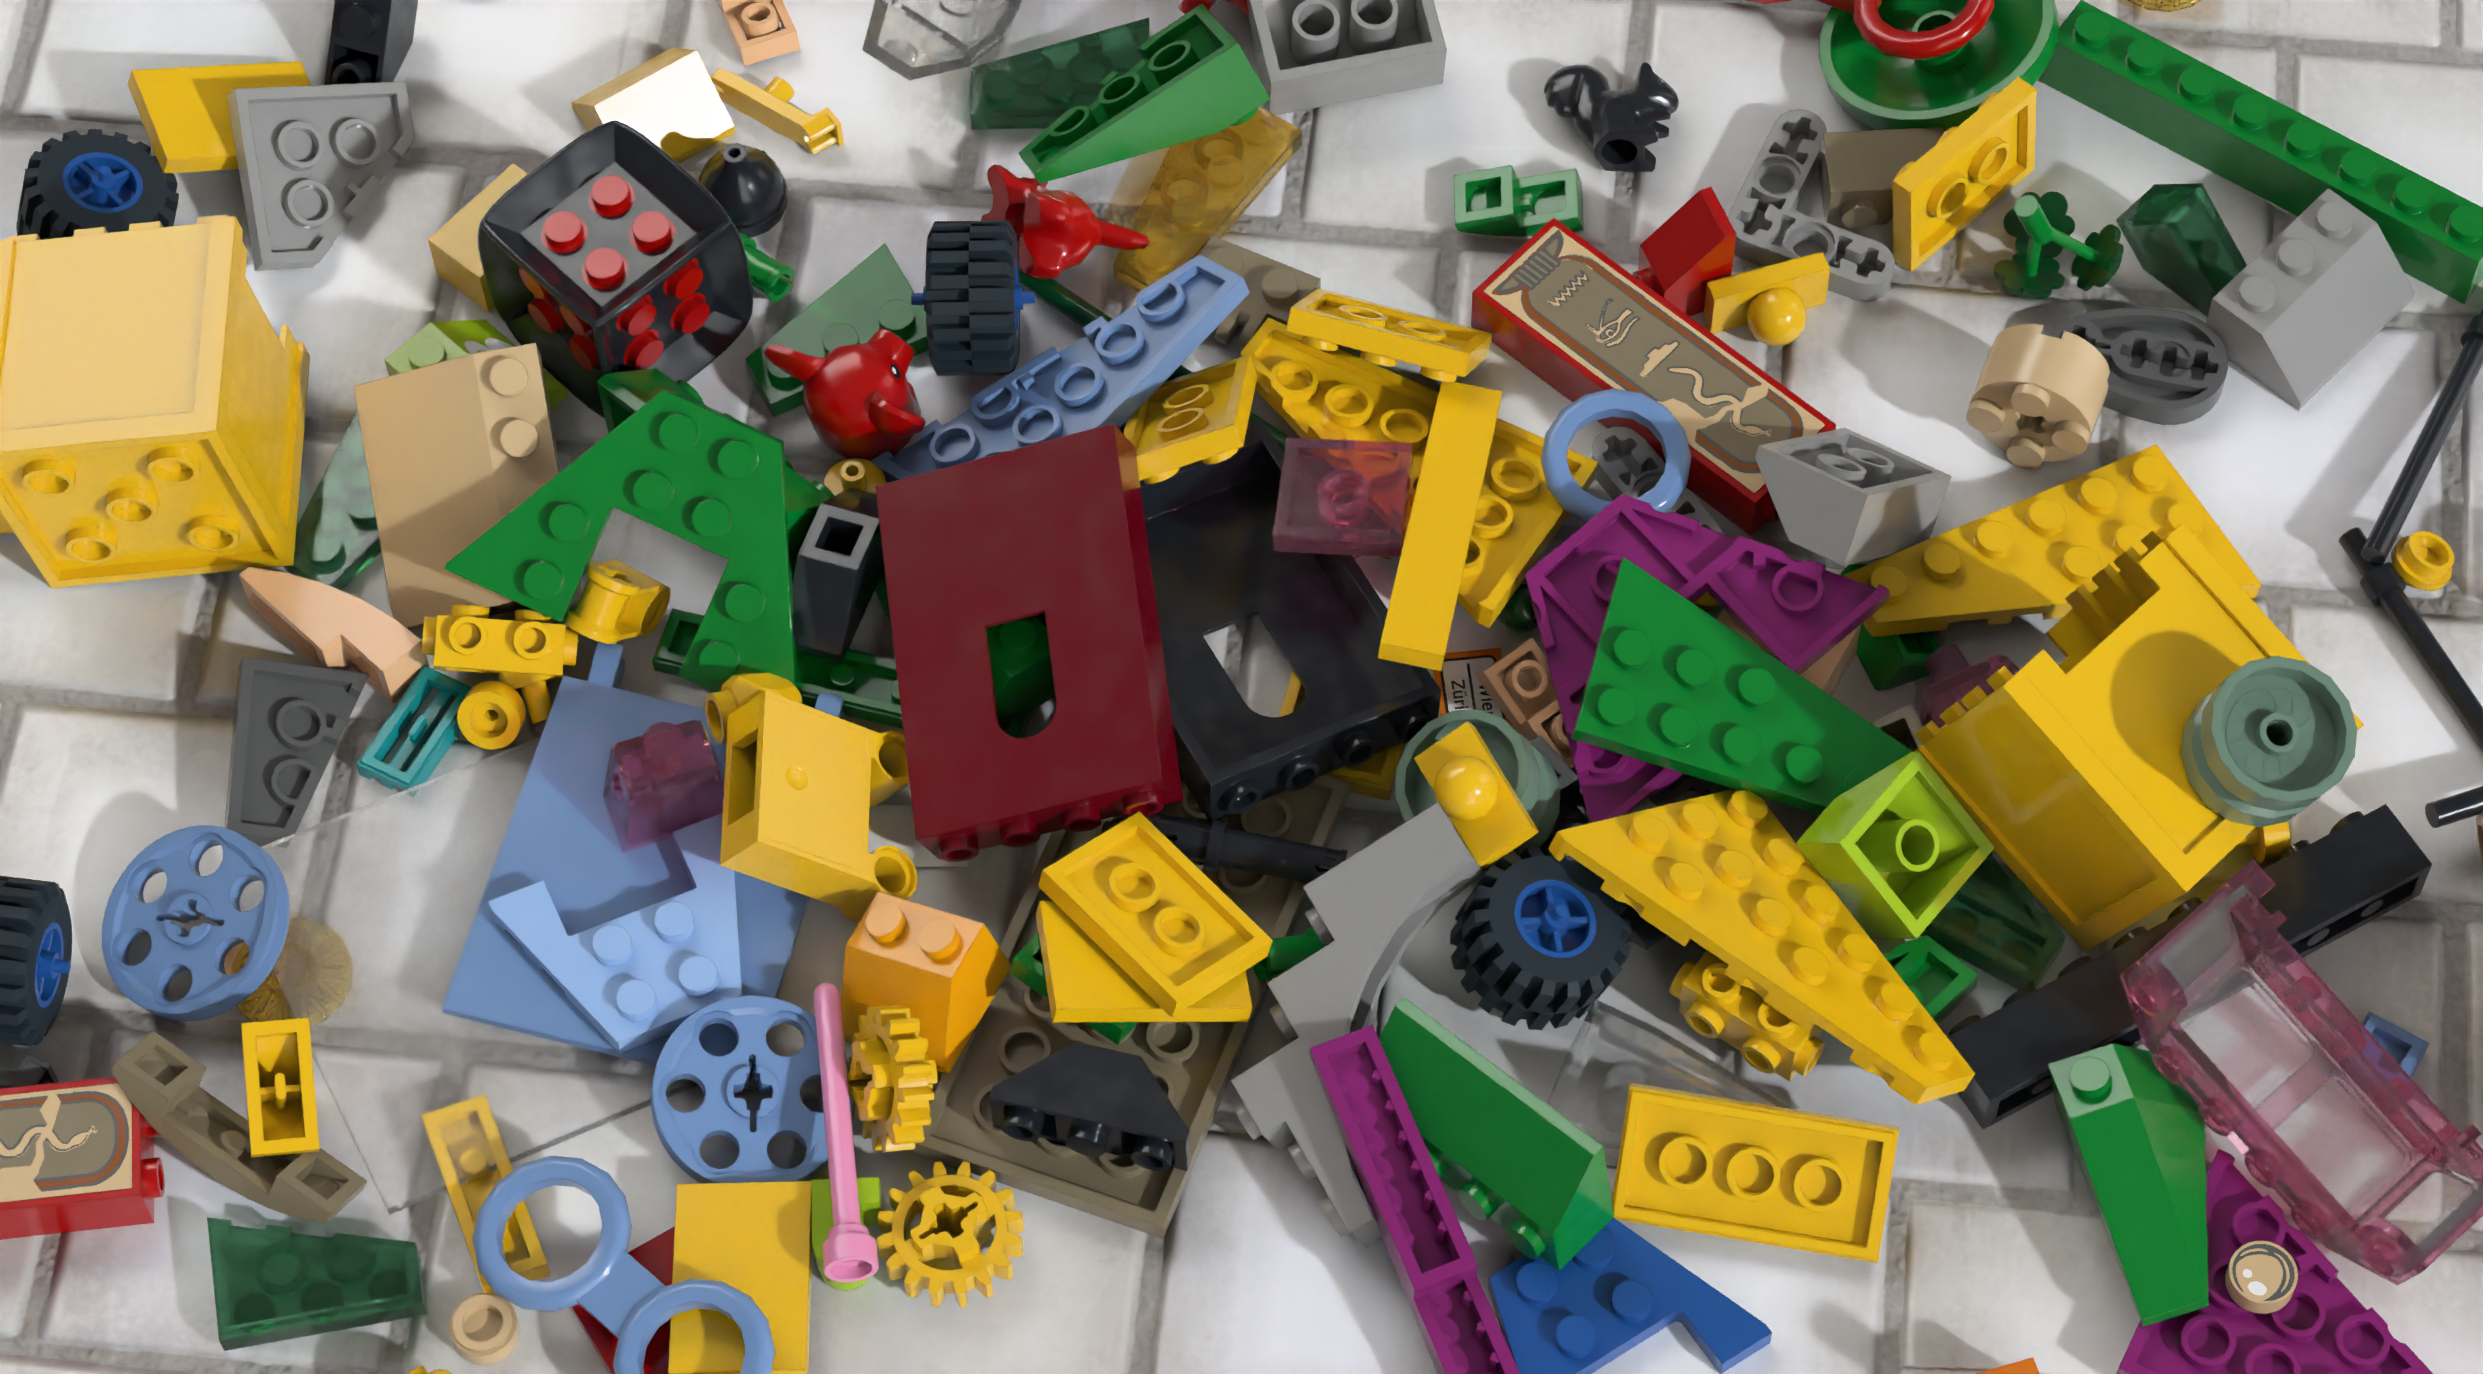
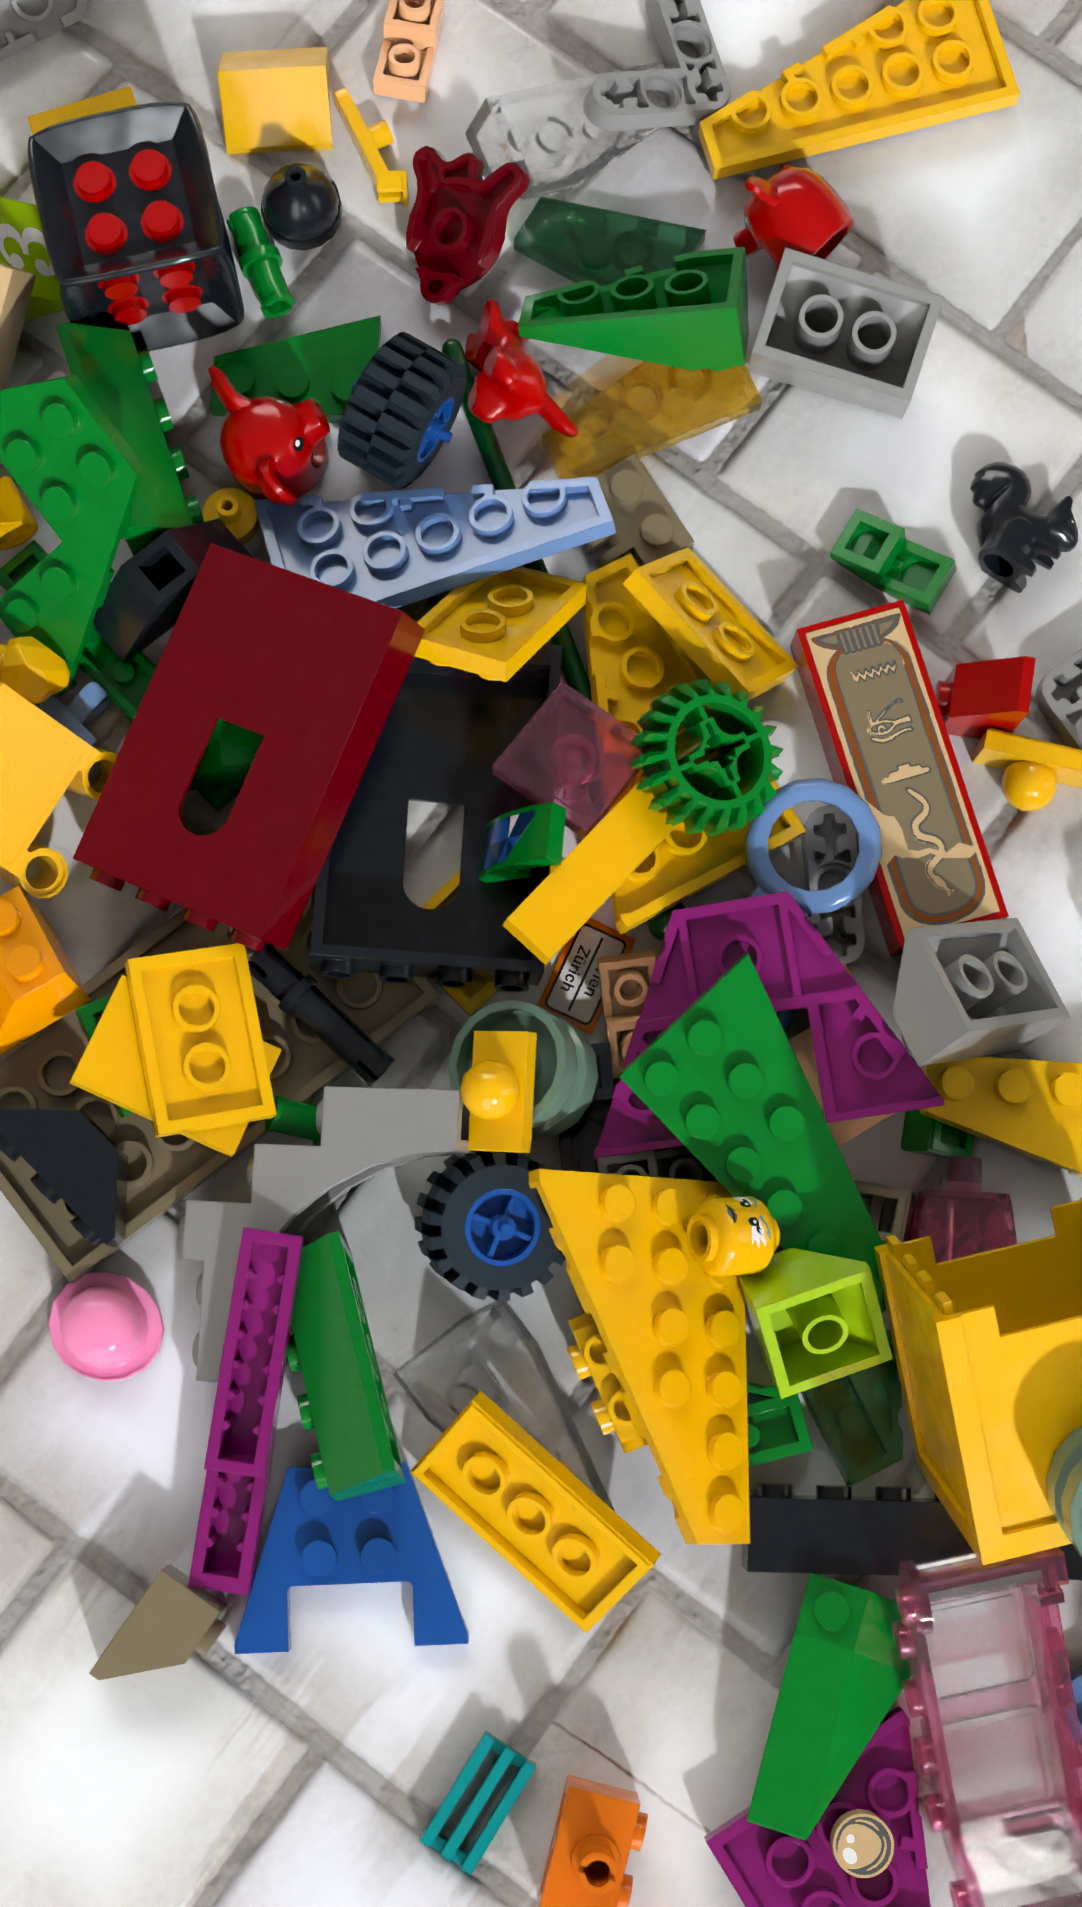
camera: 25 degrees right, 20 degrees up
(910, 121) = (459, 220): none -> dark red tile
(1220, 1260) = (106, 1326): none -> bright pink hat
(1339, 591) = (522, 841): none -> green slope
(1468, 424) = (706, 722): none -> green gear
(1774, 804) = (732, 1236): none -> yellow head

